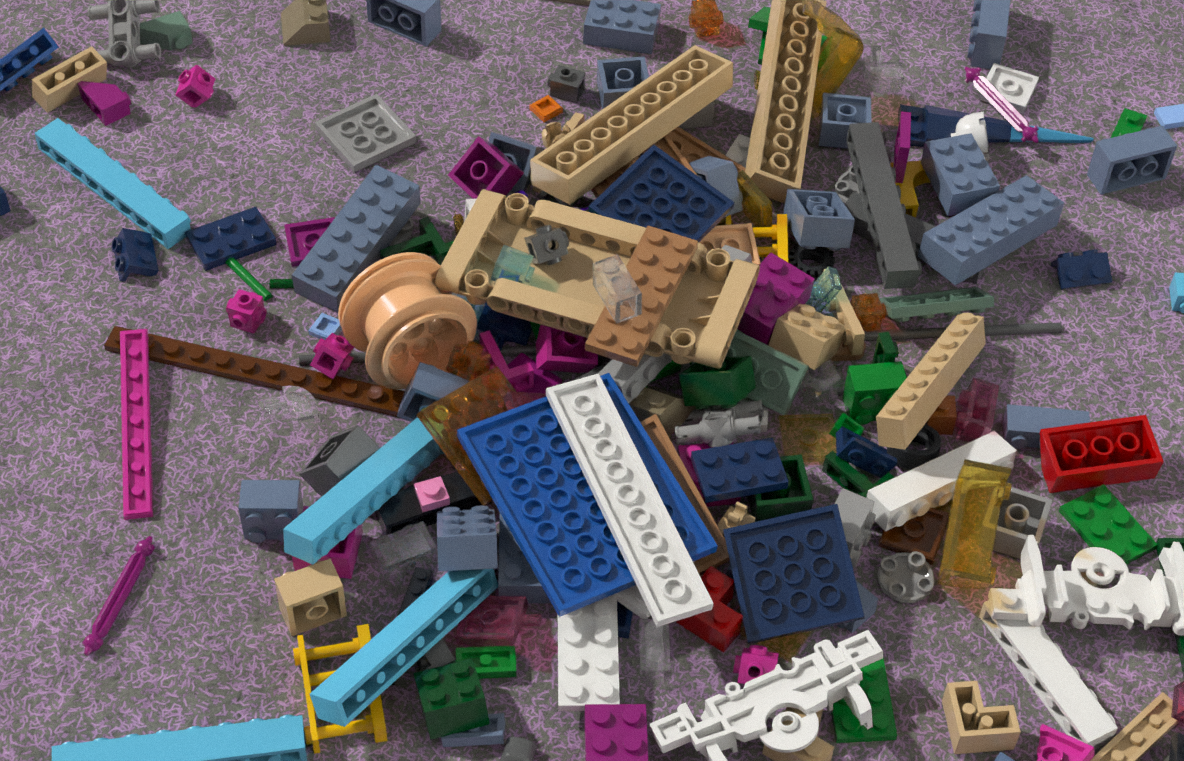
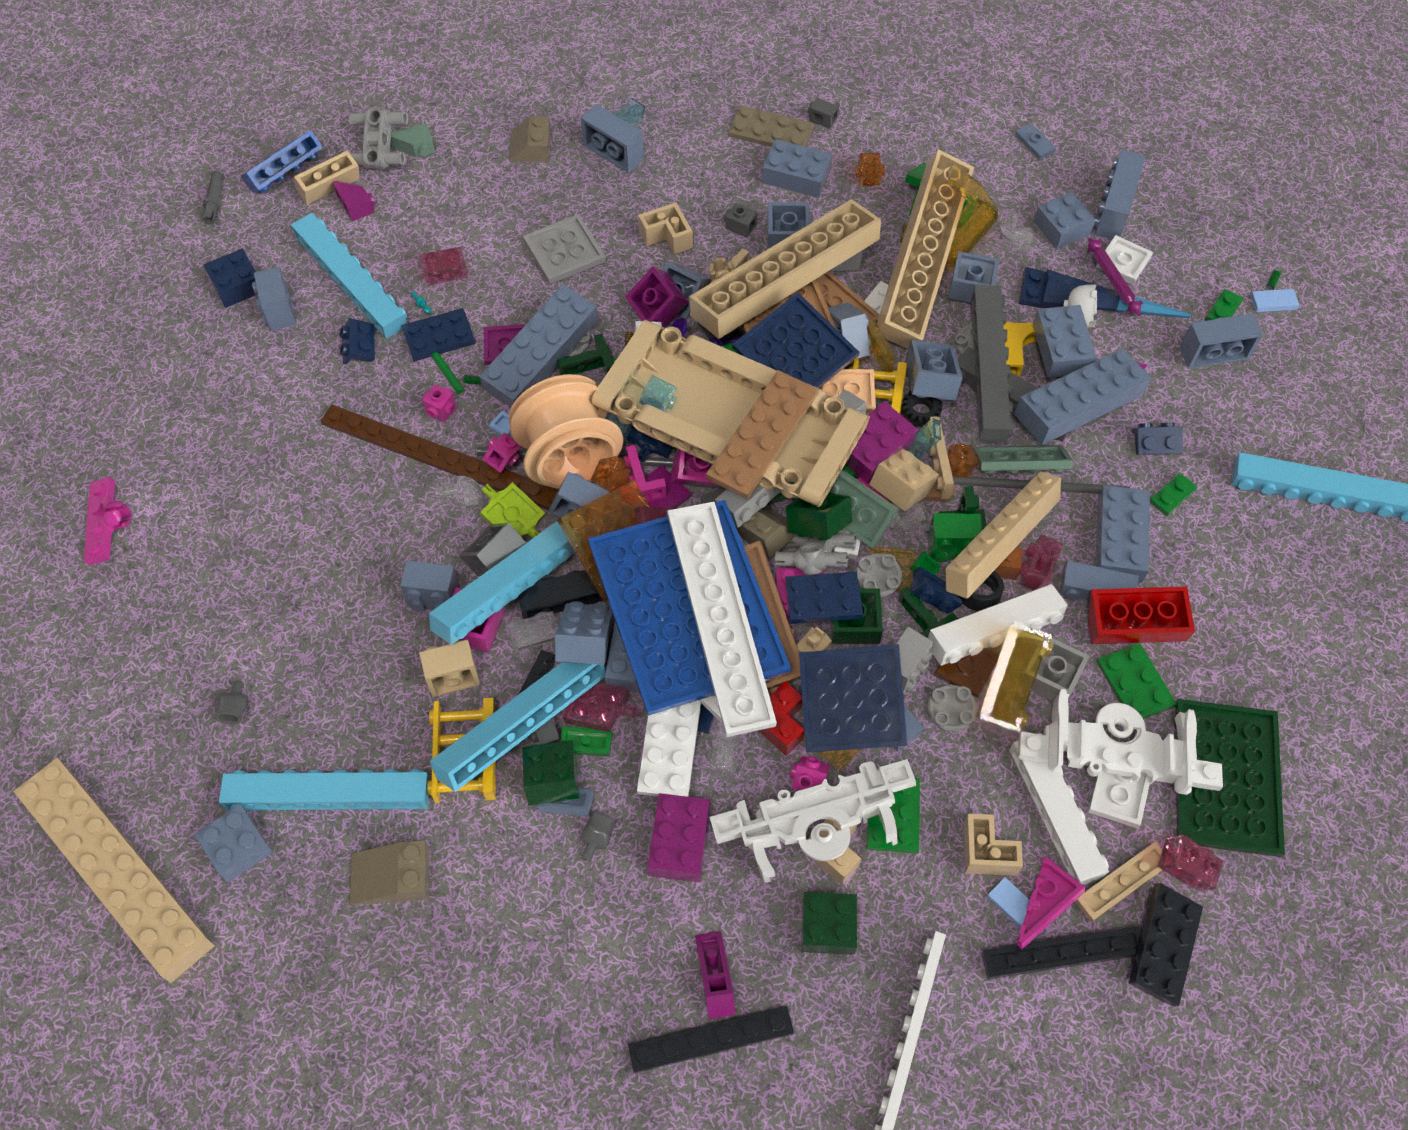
camera: 10 degrees right, 10 degrees up
(27, 215) = (273, 299): none -> sand blue brick
(47, 671) = (231, 705): none -> dark grey piece
(118, 596) = (298, 645): magenta wheel -> none
(136, 425) = (335, 495): dark pink tile -> none
(195, 86) = (429, 193): dark pink brick -> none
(204, 205) = (420, 301): none -> teal hand
(226, 163) = (443, 266): none -> clear pink brick
(353, 410) = (514, 508): none -> lime plate
(431, 494) = (563, 588): bright pink plate -> none
(484, 95) = (666, 224): none -> tan brick
(546, 108) = (720, 240): orange tile -> none
(547, 245) = (685, 372): dark grey brick -> none
(617, 288) = (739, 429): clear brick -> none
(798, 438) = (879, 572): none -> light grey dish
(902, 146) = (1017, 311): magenta tile -> none
(934, 52) = (1064, 220): none -> sand blue brick
(1062, 366) = (1123, 530): none -> sand blue brick
(1110, 326) = (1173, 494): none -> green plate
(1113, 650) = (1119, 798): none -> white plate
(1176, 92) = (1274, 278): none -> green piece

